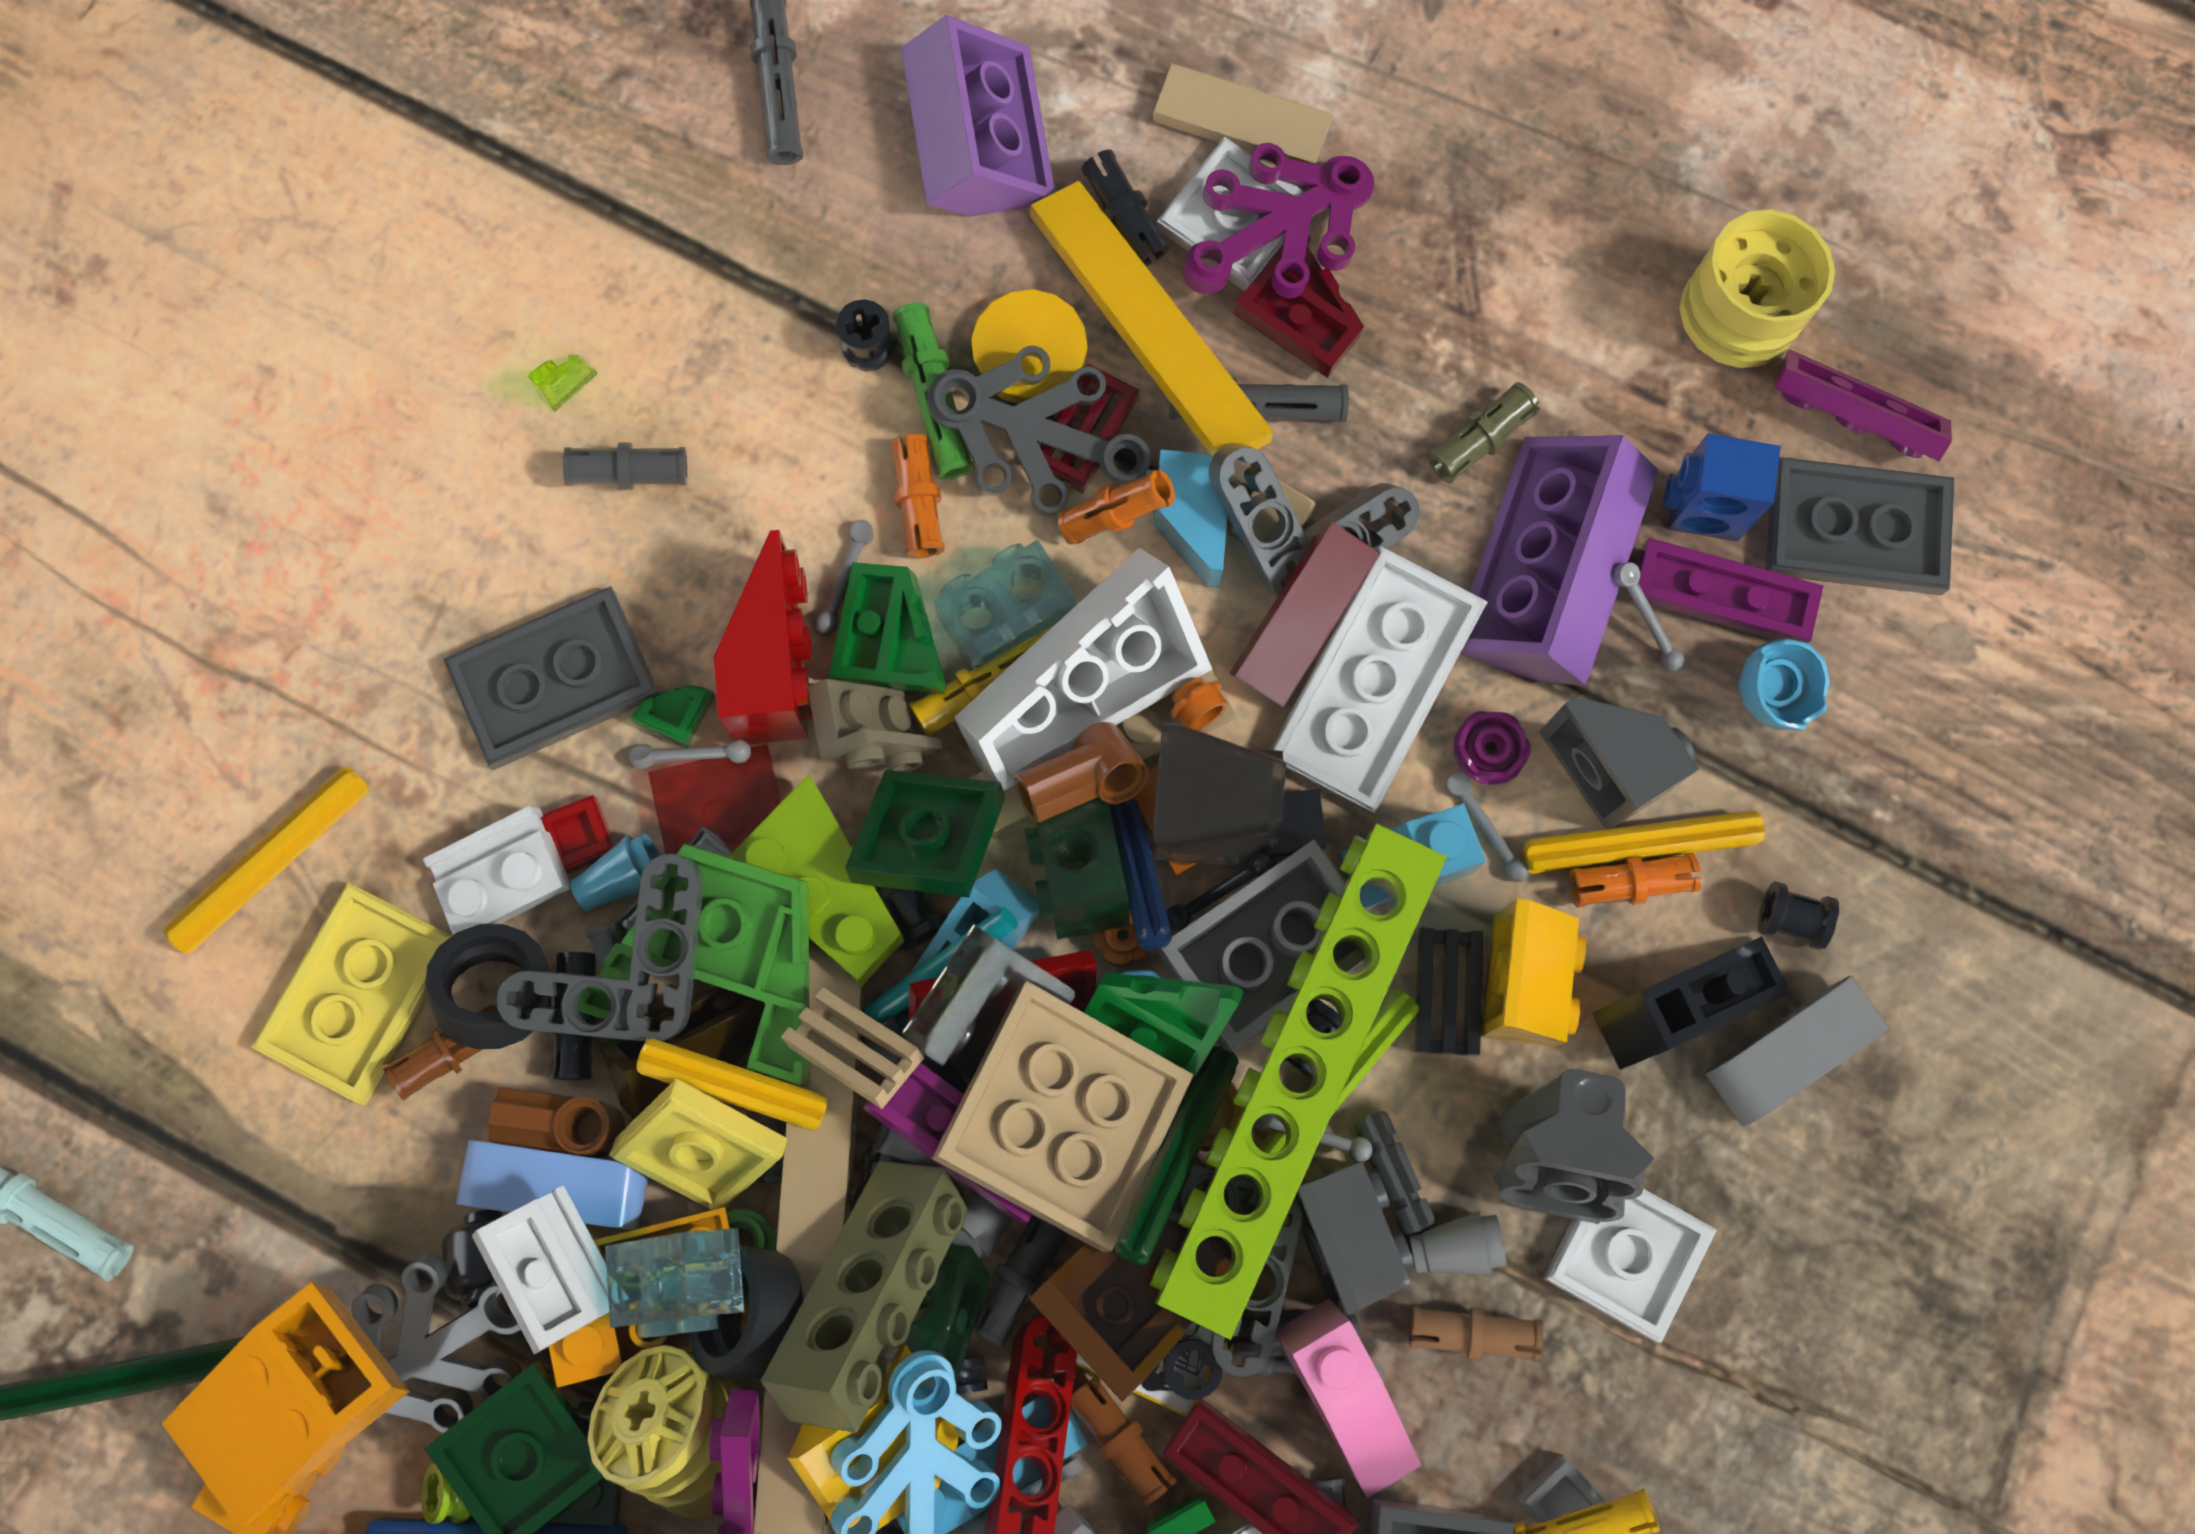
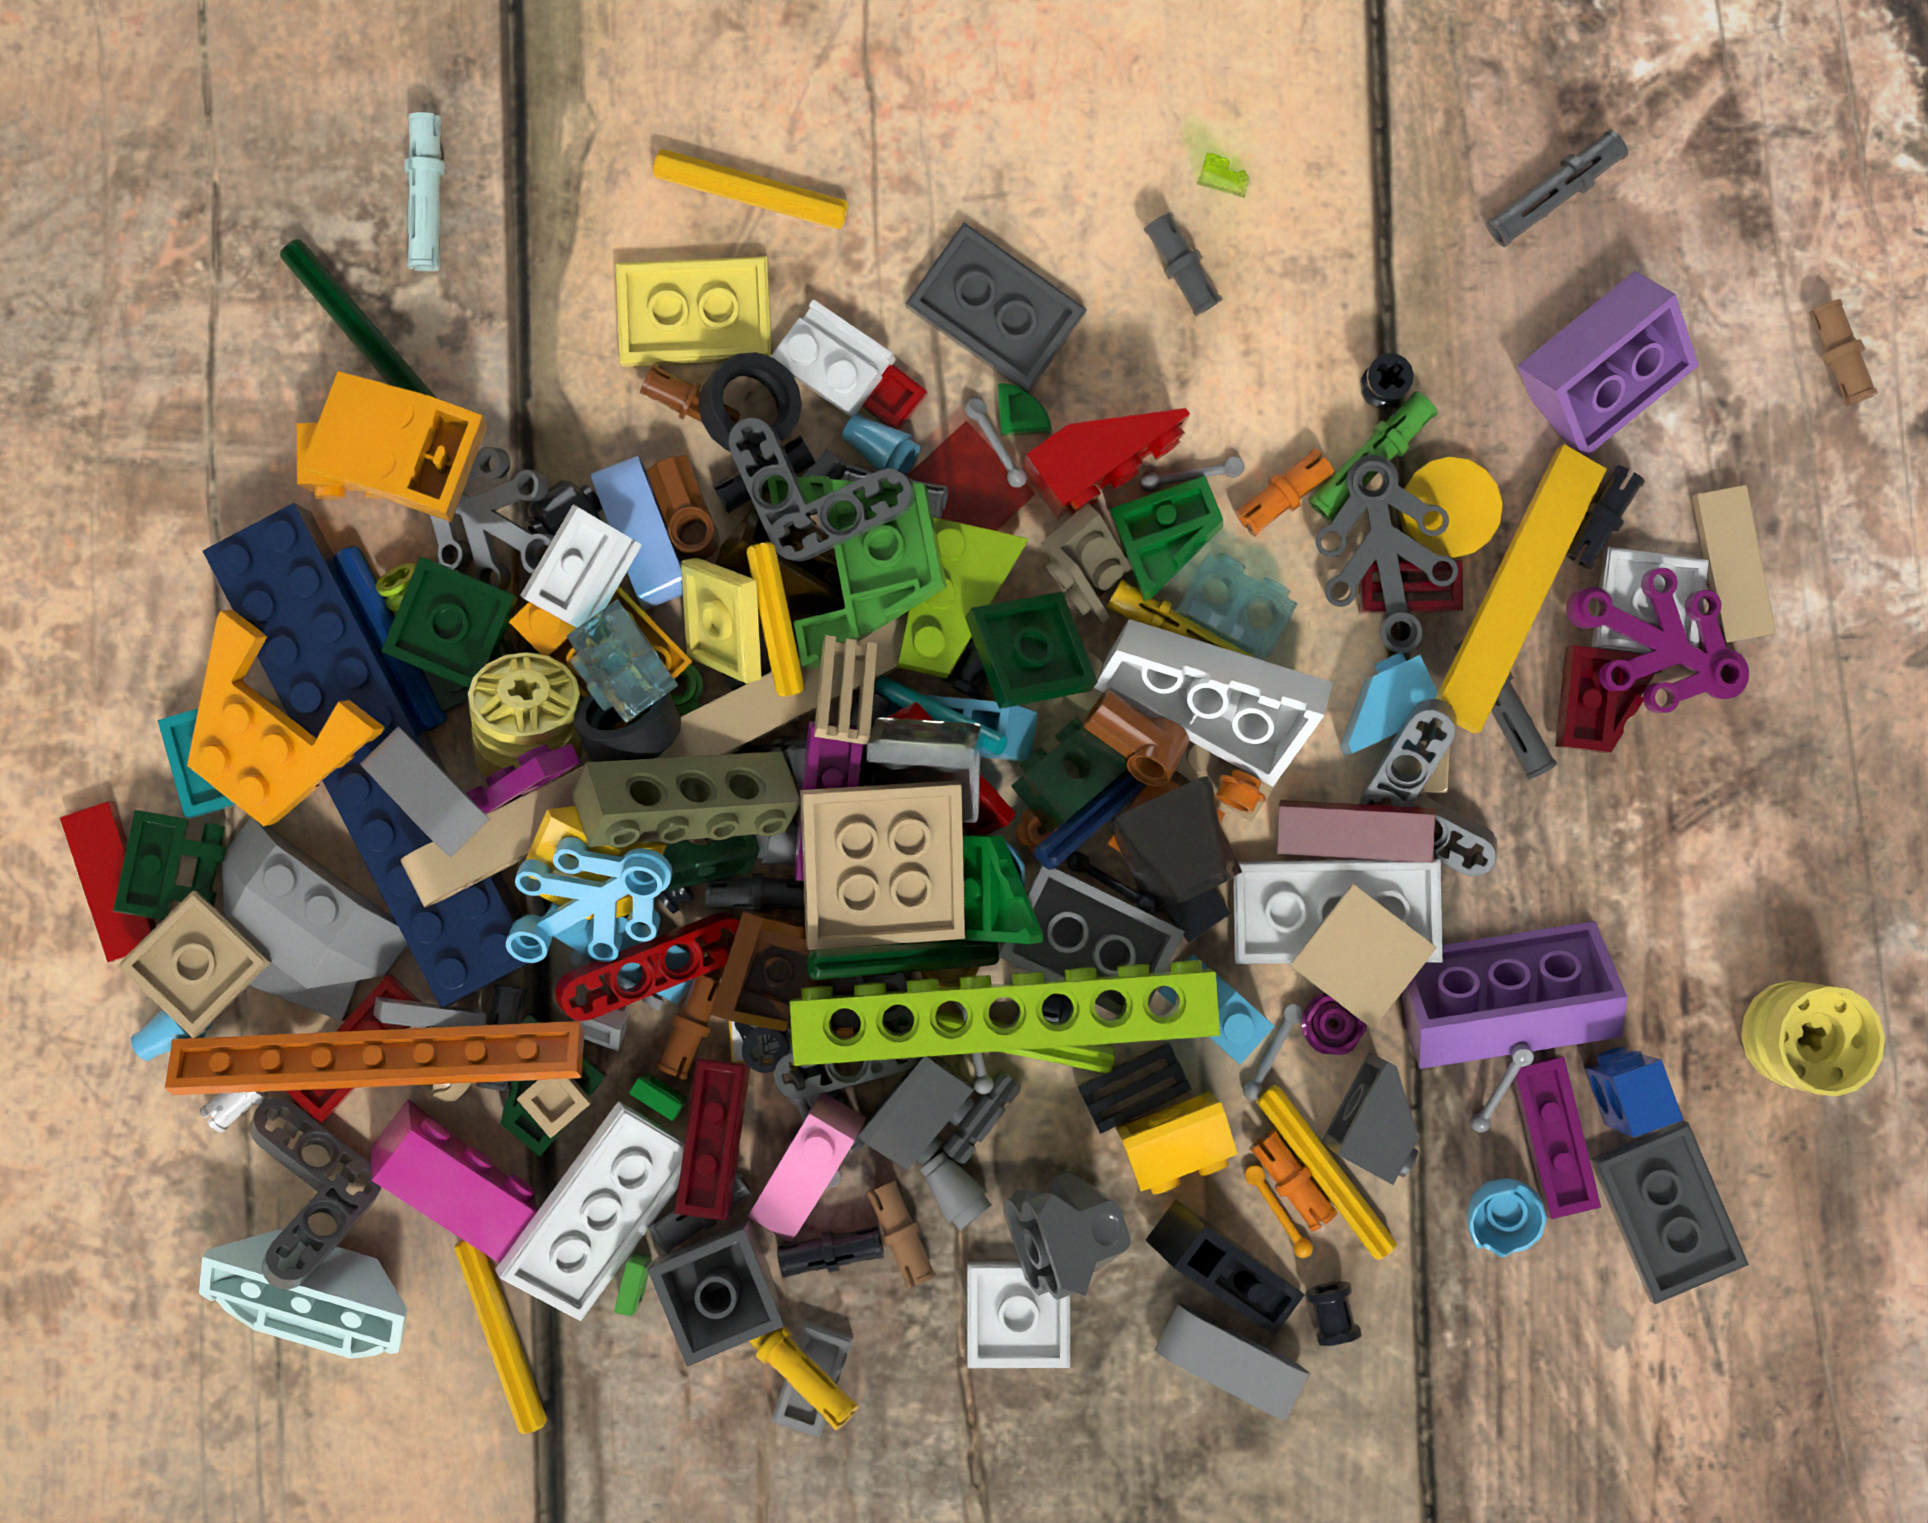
camera: 60 degrees right, 10 degrees up
(1116, 507) = (1374, 663): orange pin -> none
(1438, 676) = (1363, 956): none -> tan tile
(1454, 1425) = (830, 1251): none -> black pin
(1483, 432) = (1579, 888): olive pin -> none
(1609, 917) = (1255, 1176): none -> light orange hinge
(1863, 406) = (1767, 1166): magenta plate -> none

